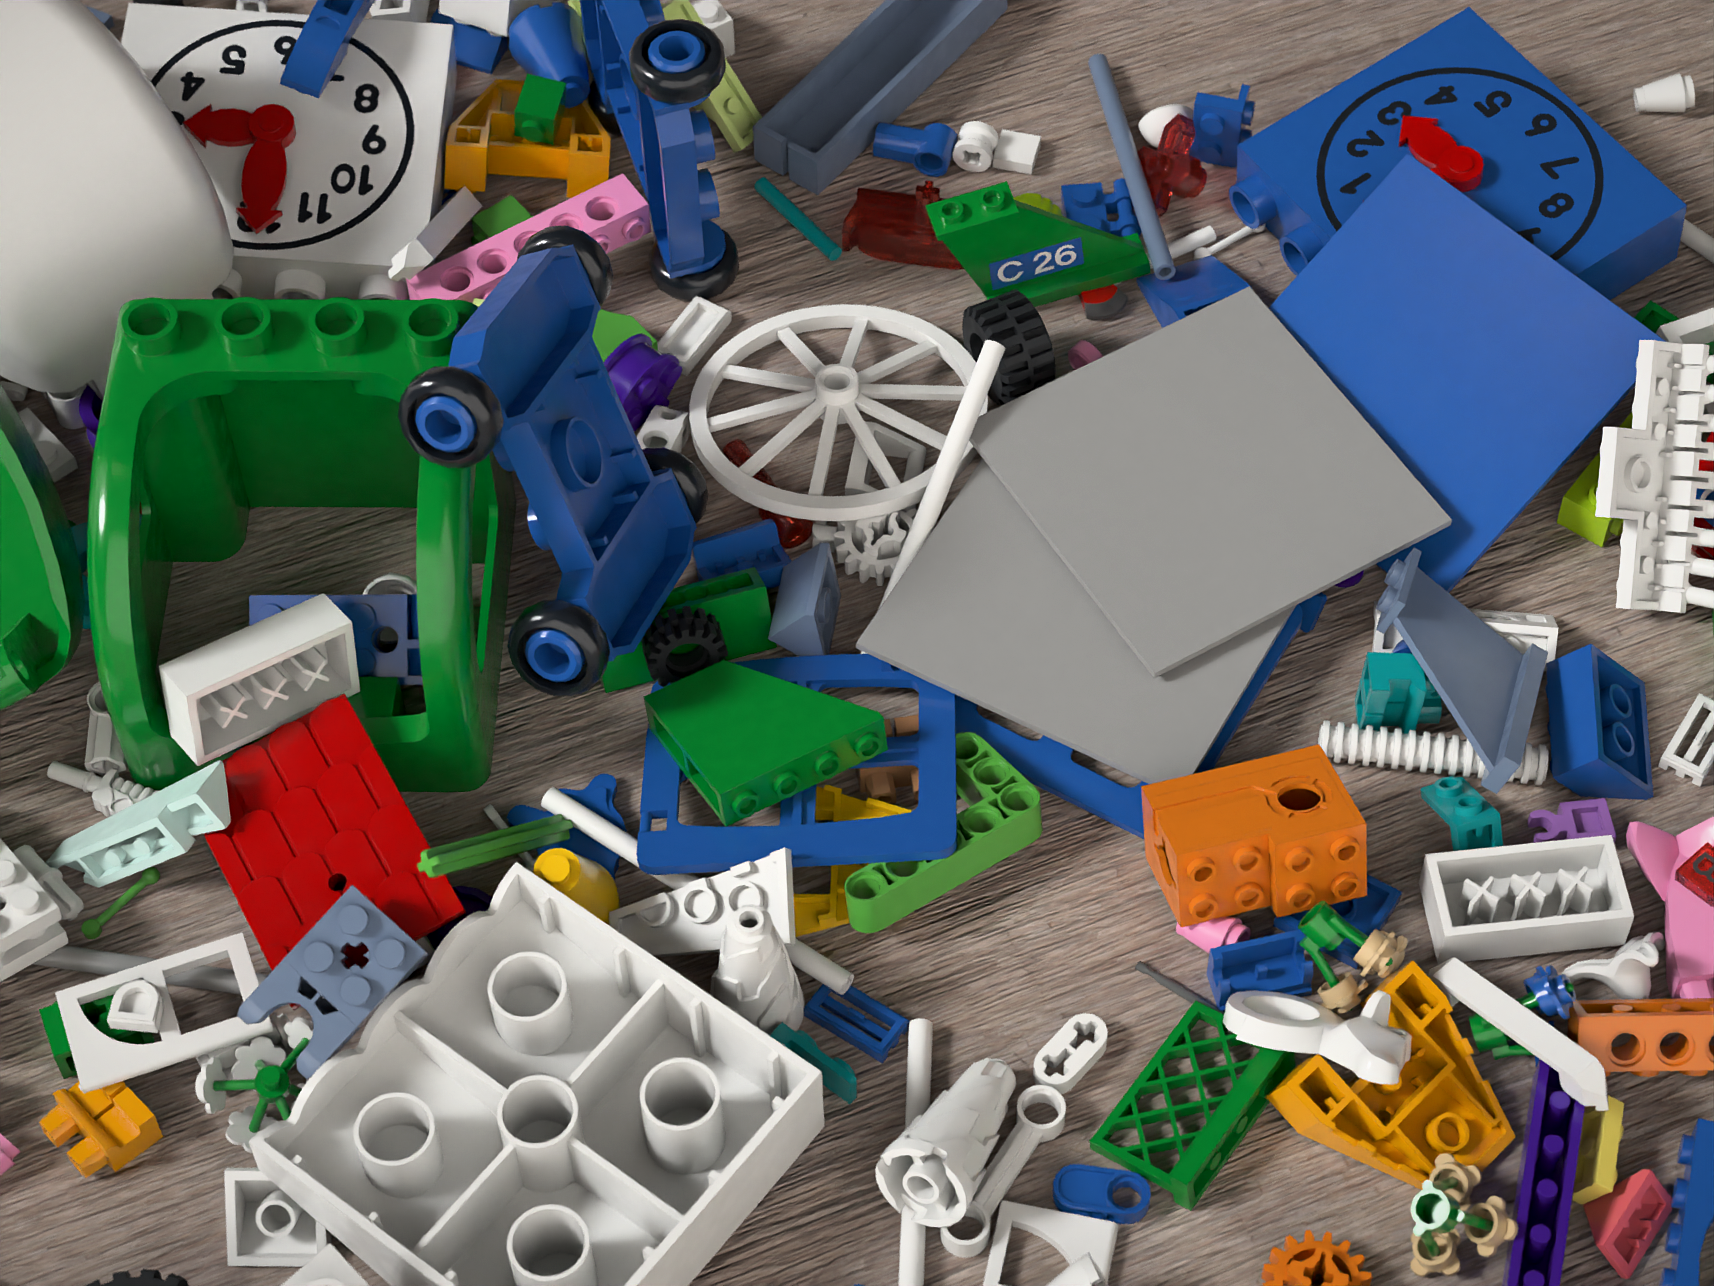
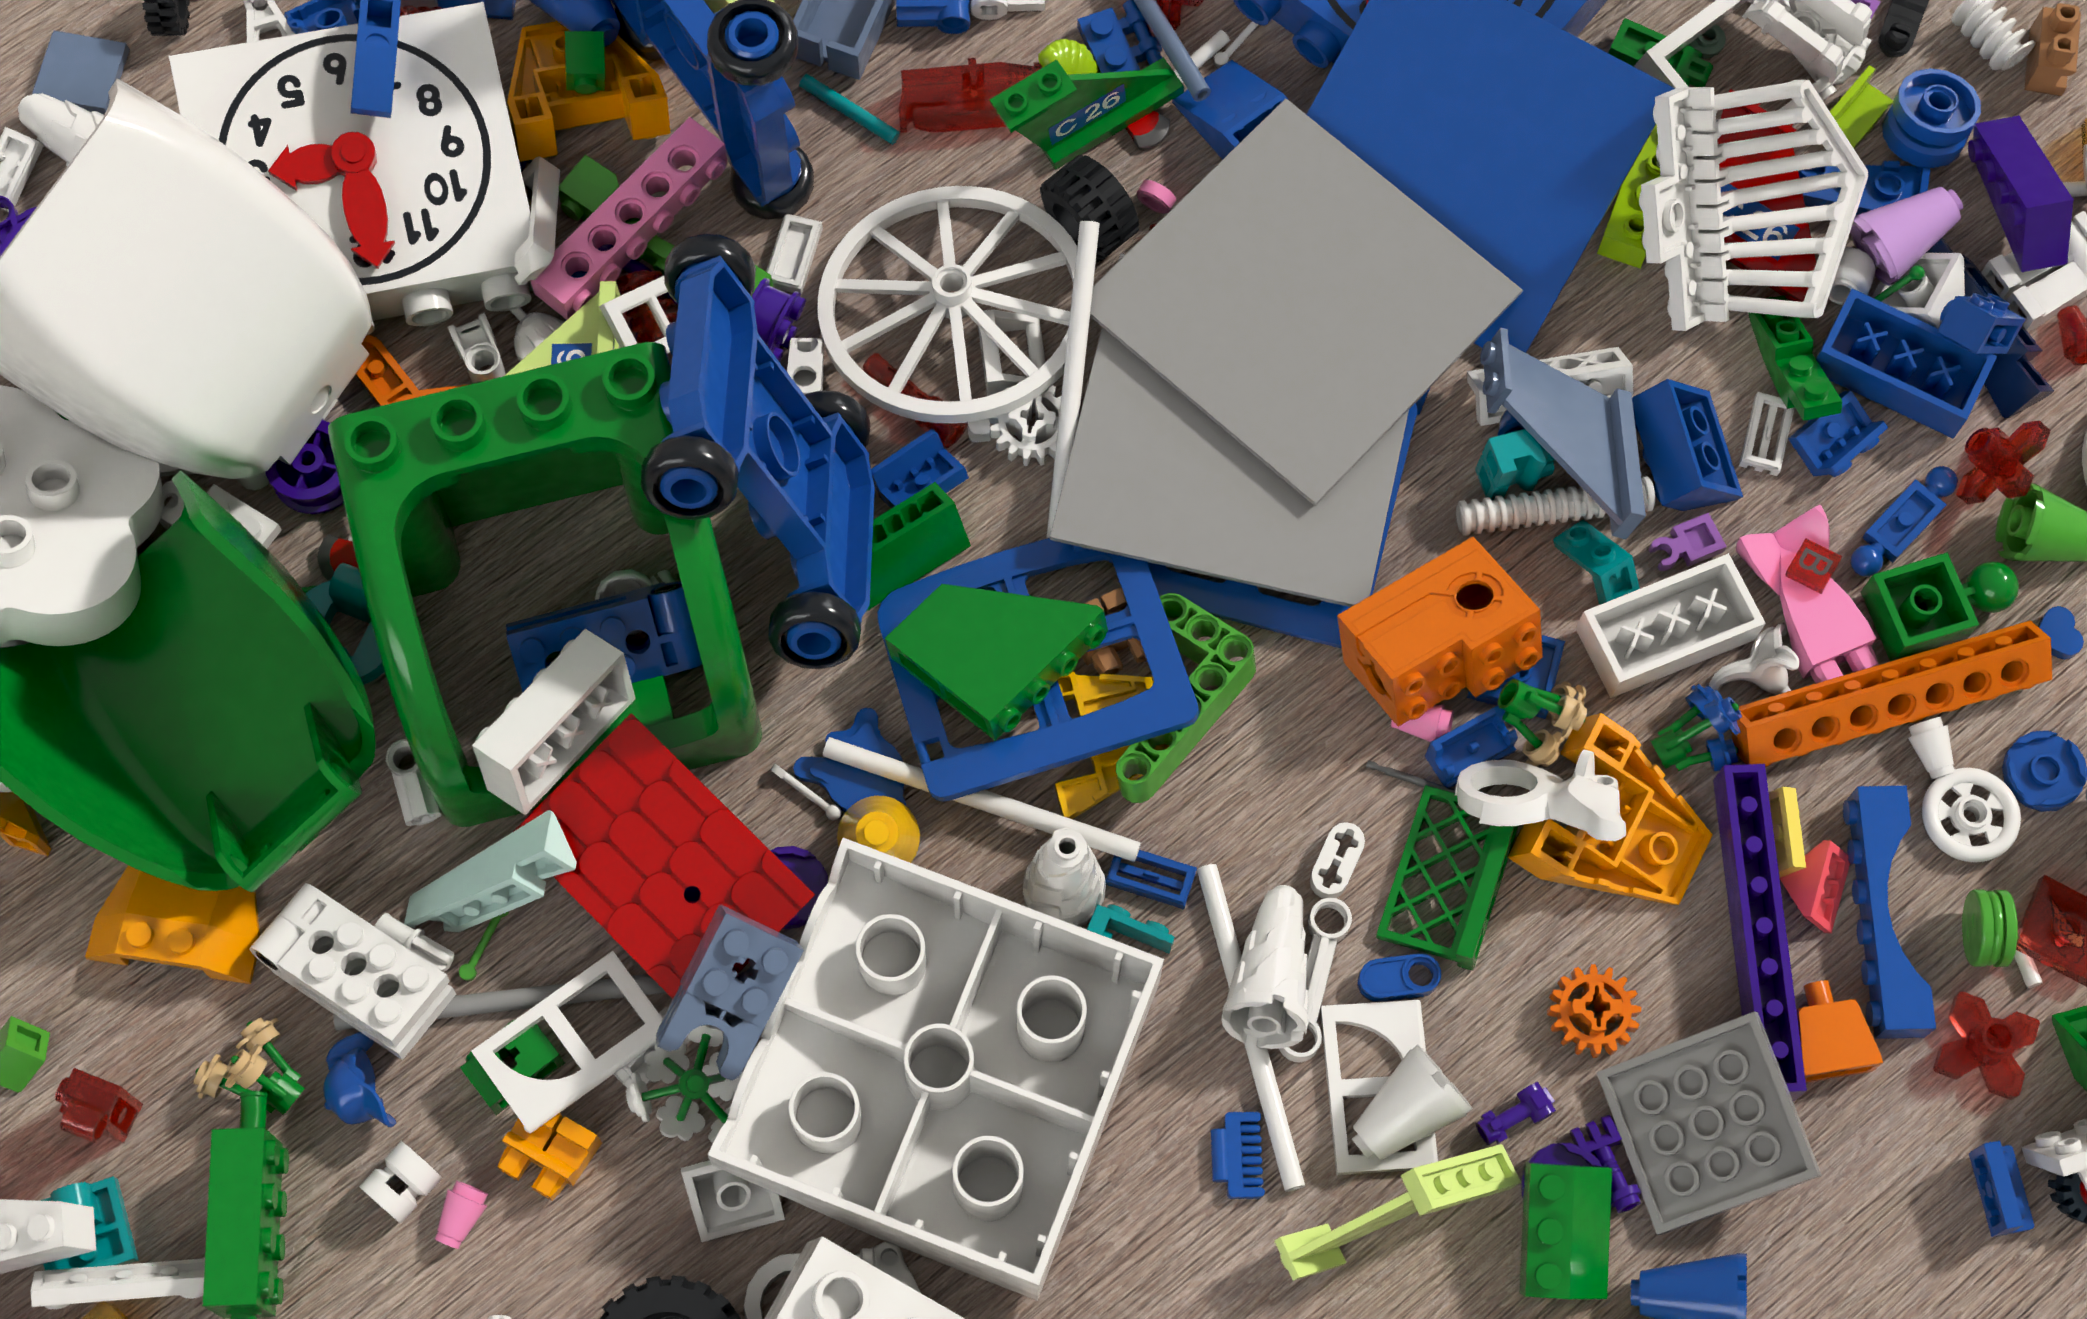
camera: 20 degrees left, 15 degrees up
(109, 792) = (439, 842): white piece -> none
(136, 1007) = (549, 1046): white tile -> none
(494, 845) = (811, 820): bright green axle -> none
(681, 630) = (902, 578): black tyre -> none
(697, 914) = (1007, 822): white wing -> none
(807, 604) = (988, 505): sand blue slope -> none
(1440, 1209) = (1684, 931): tan plant -> none
(1578, 1070) = (1760, 778): white piece -> none

